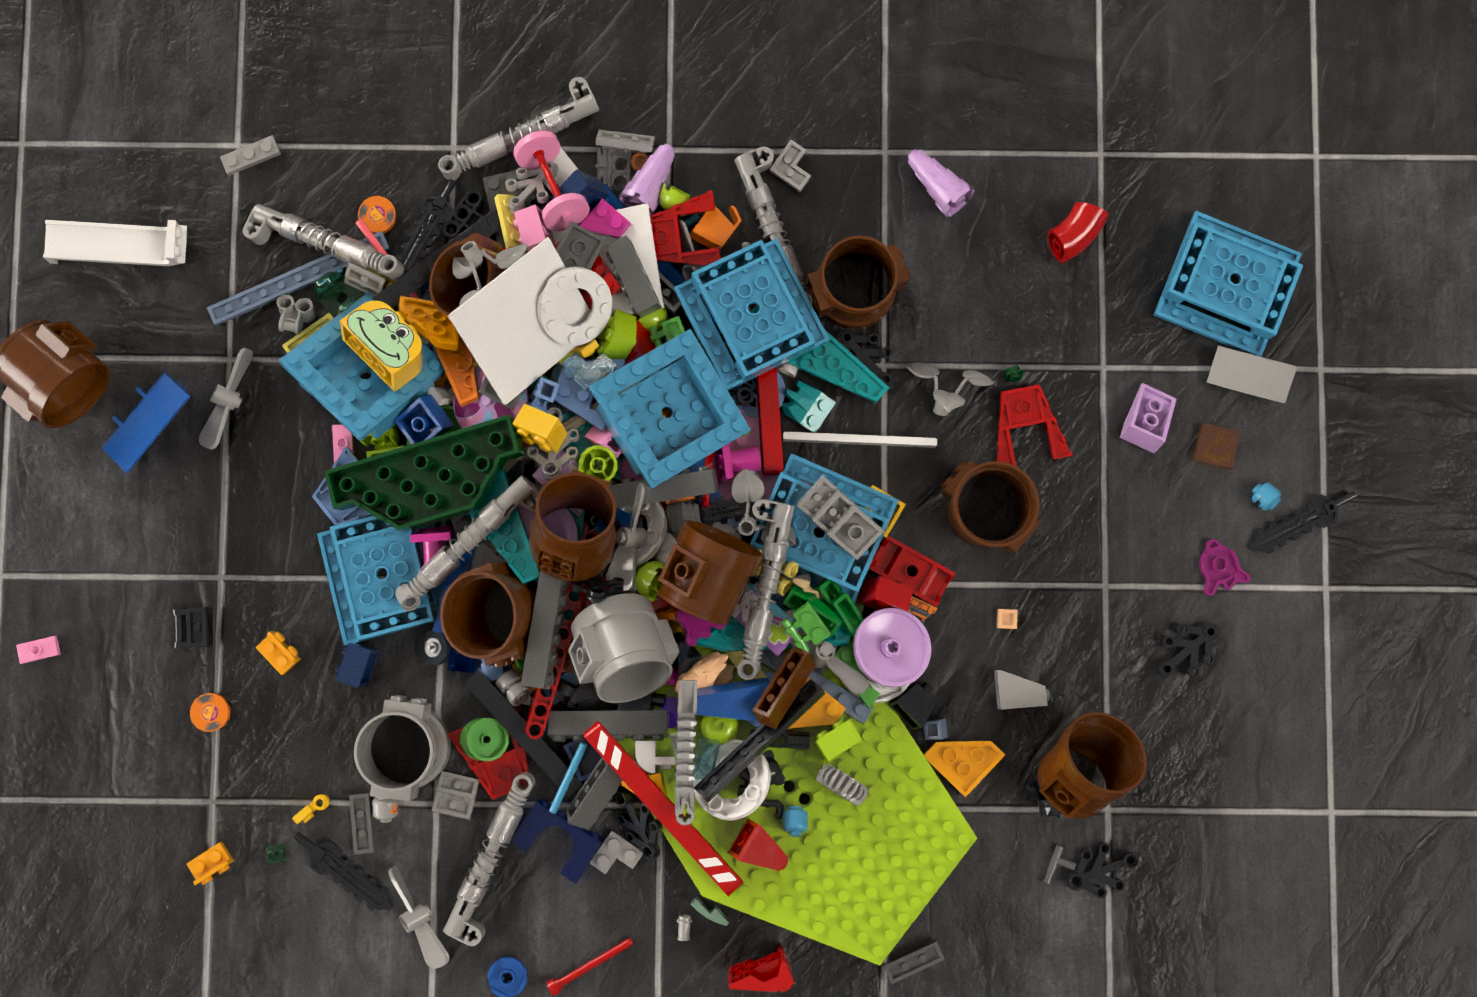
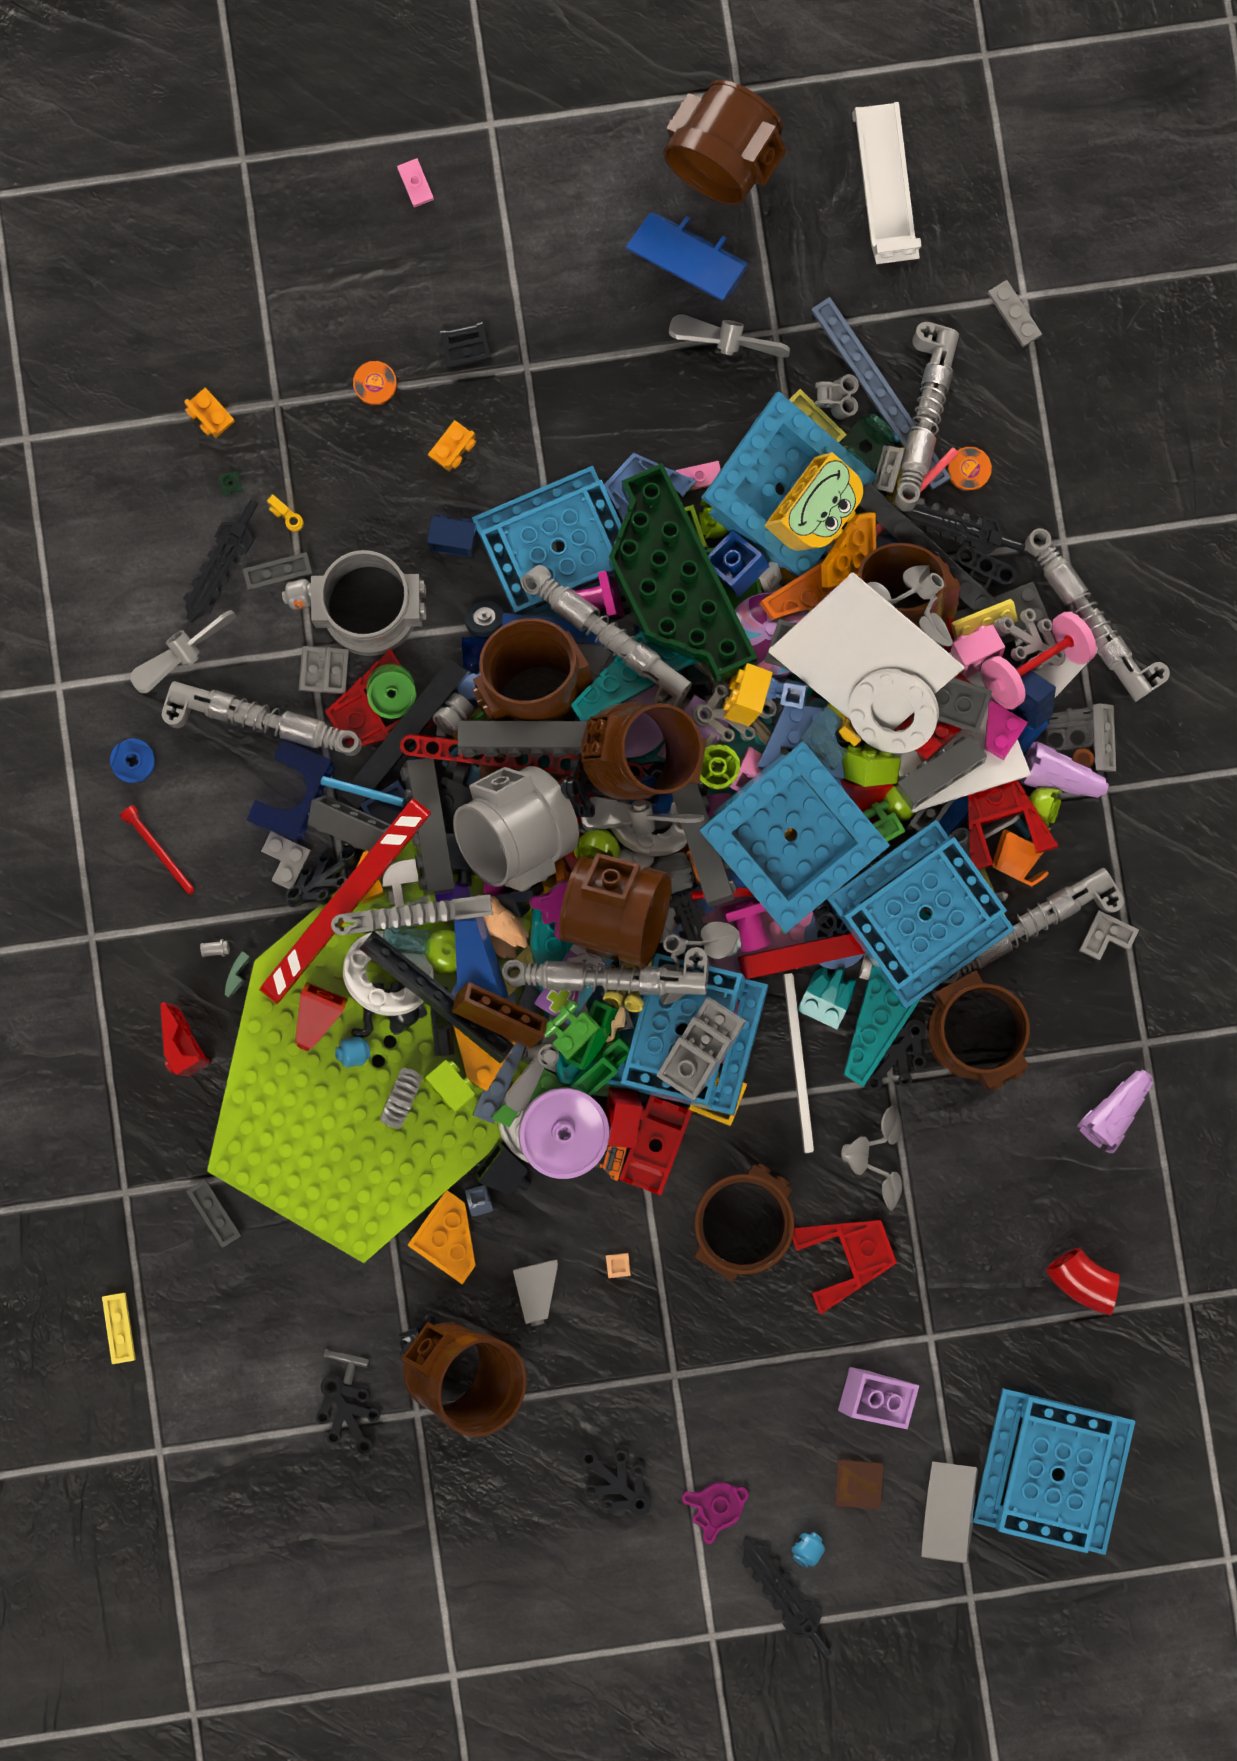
camera: 80 degrees right, 0 degrees up
(1013, 374) = (904, 1232): dark green plate -> none

